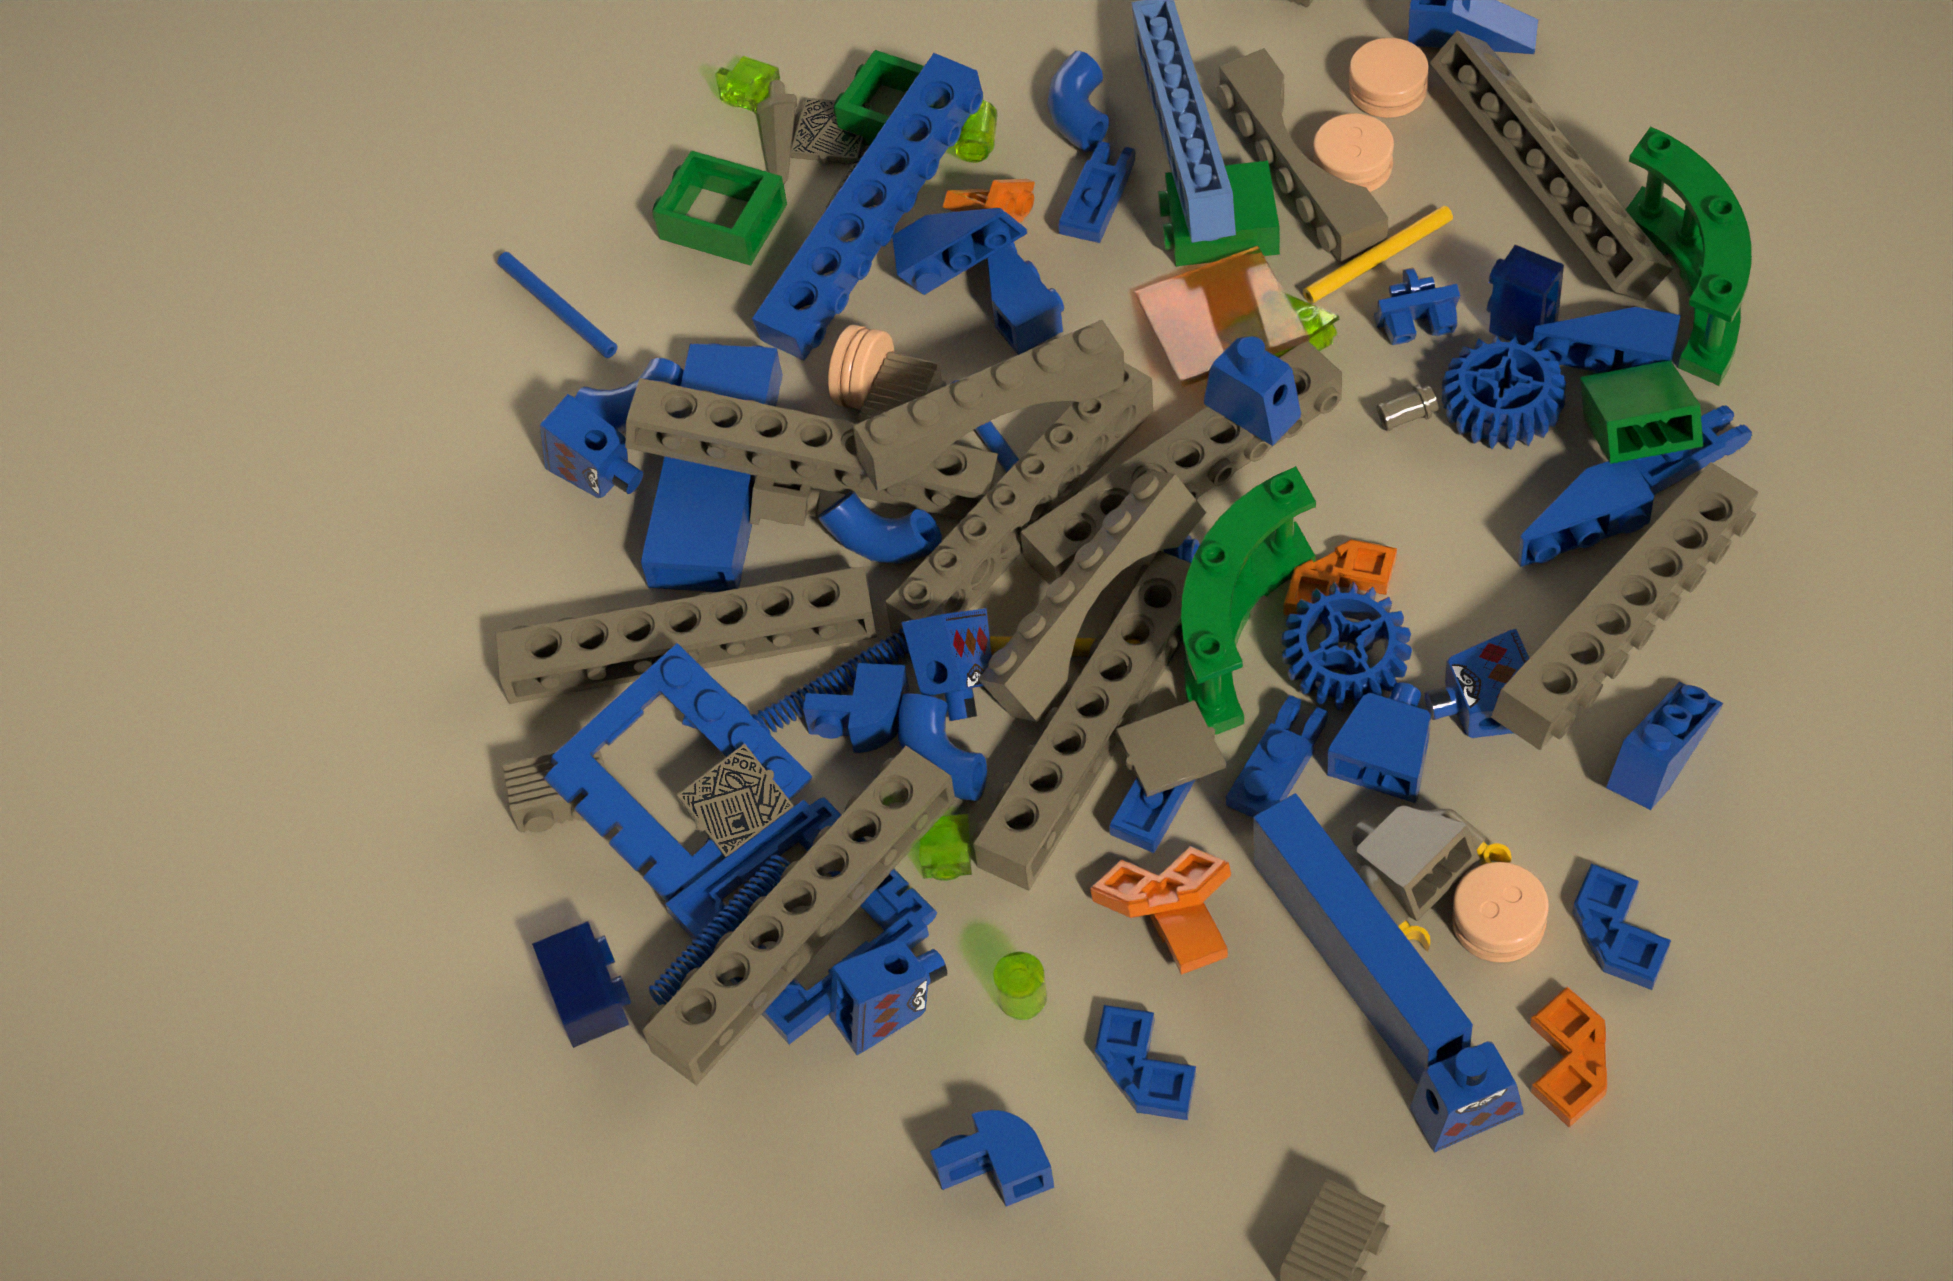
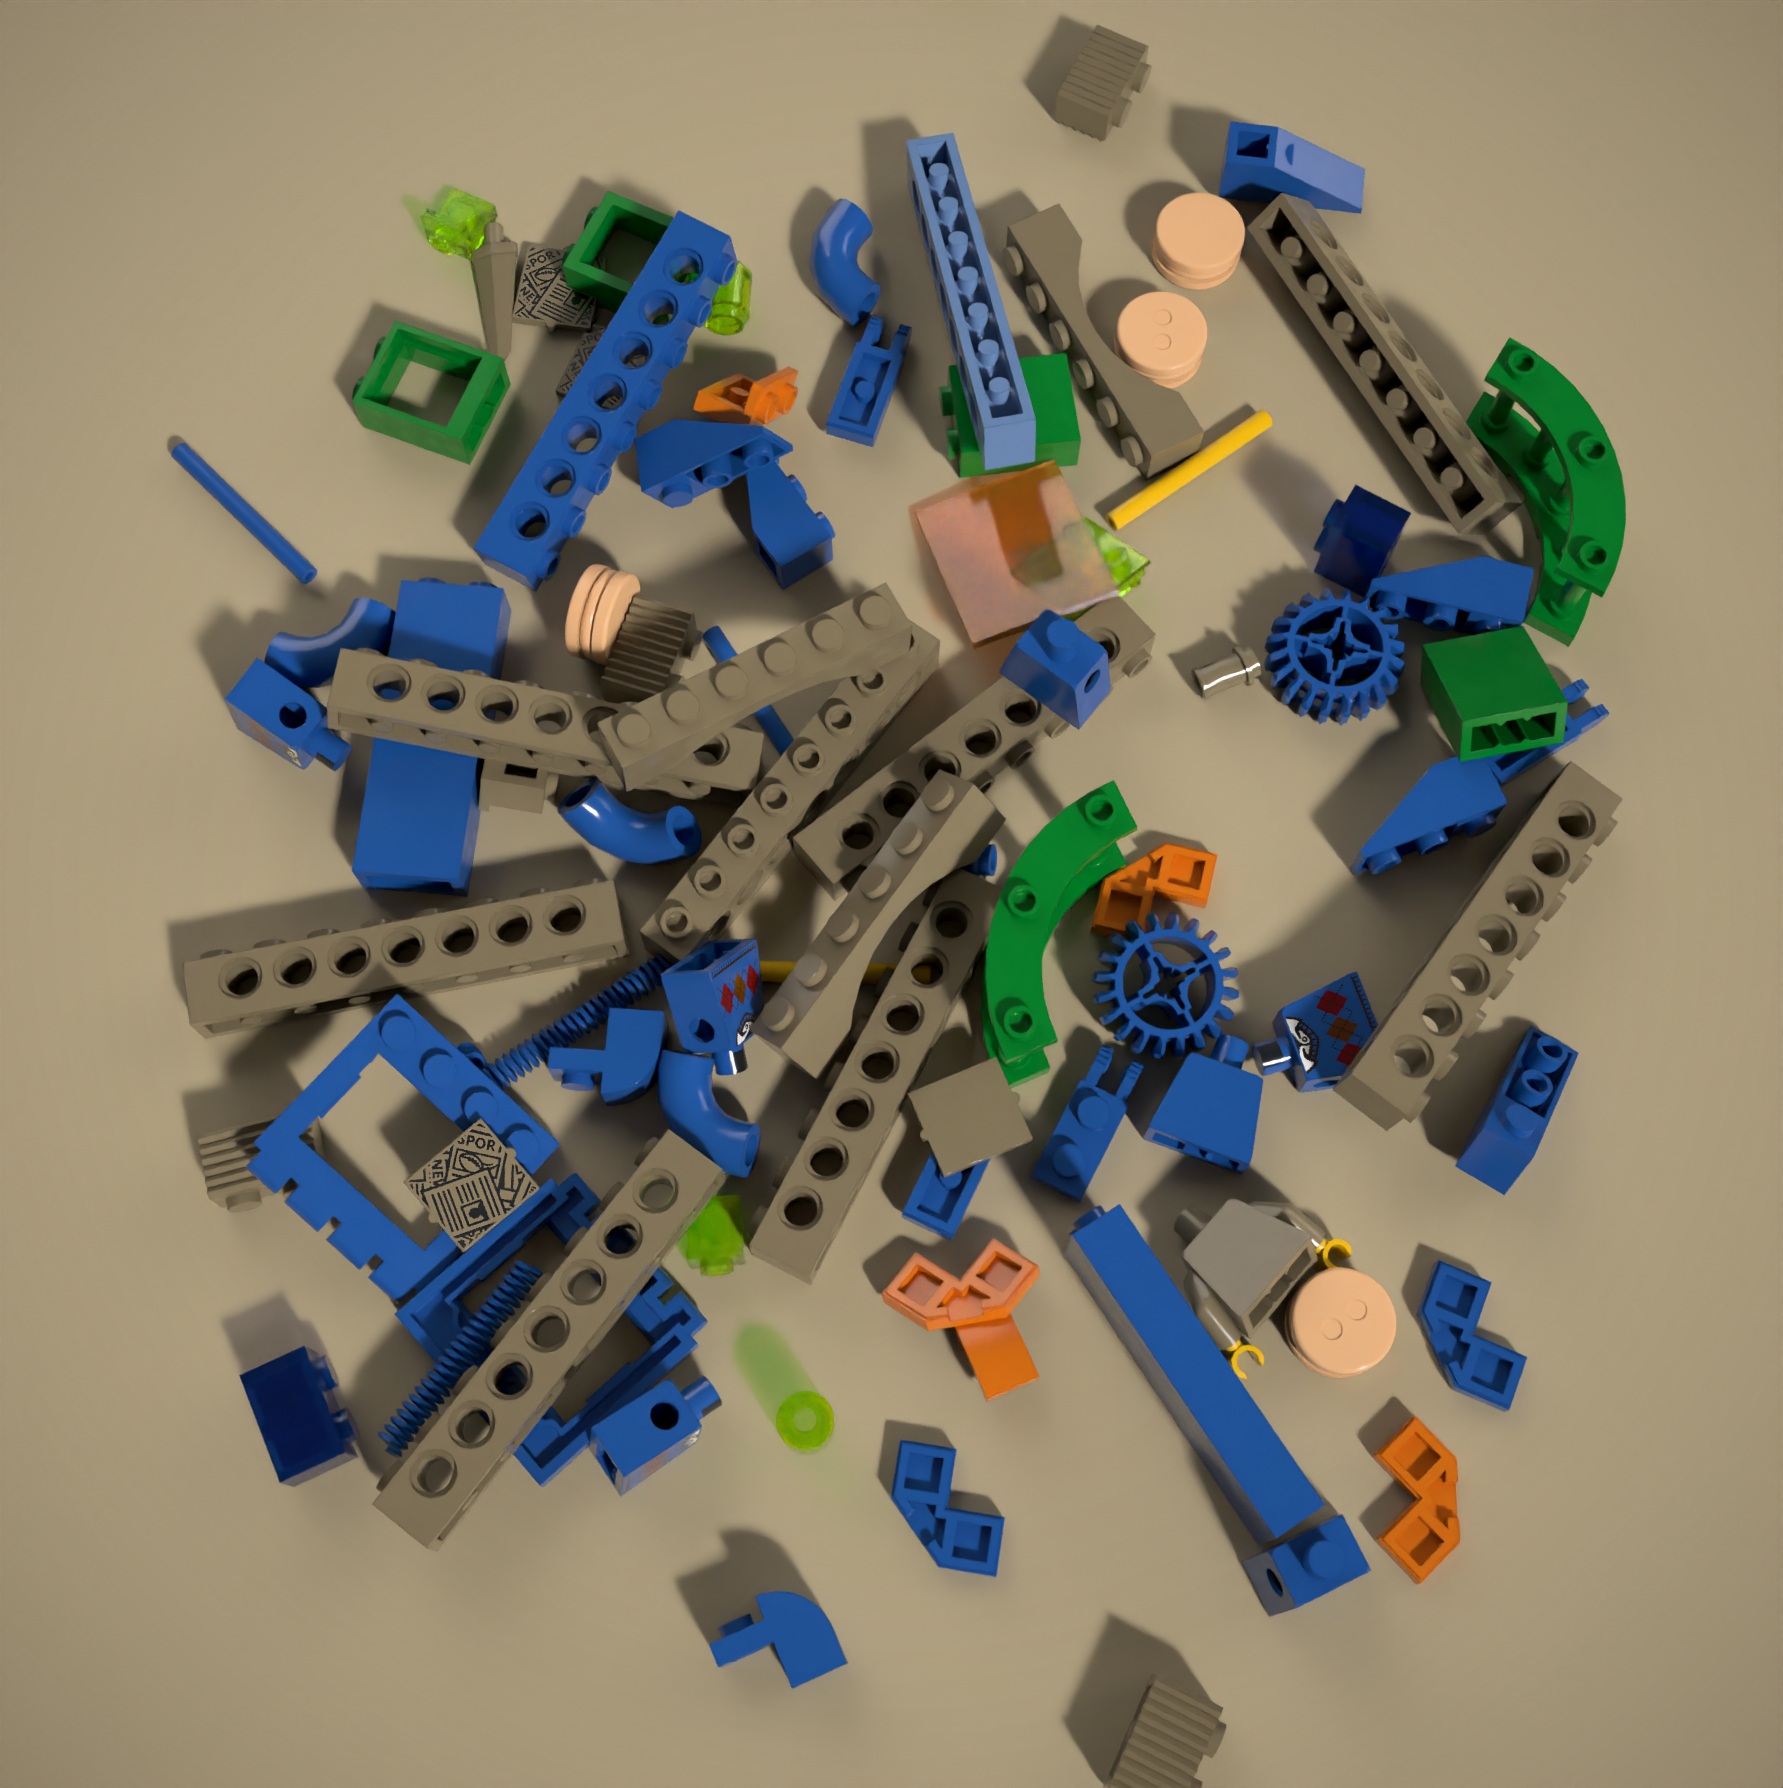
camera: 10 degrees left, 15 degrees up
(1417, 300) = (1259, 544): blue hips -> none

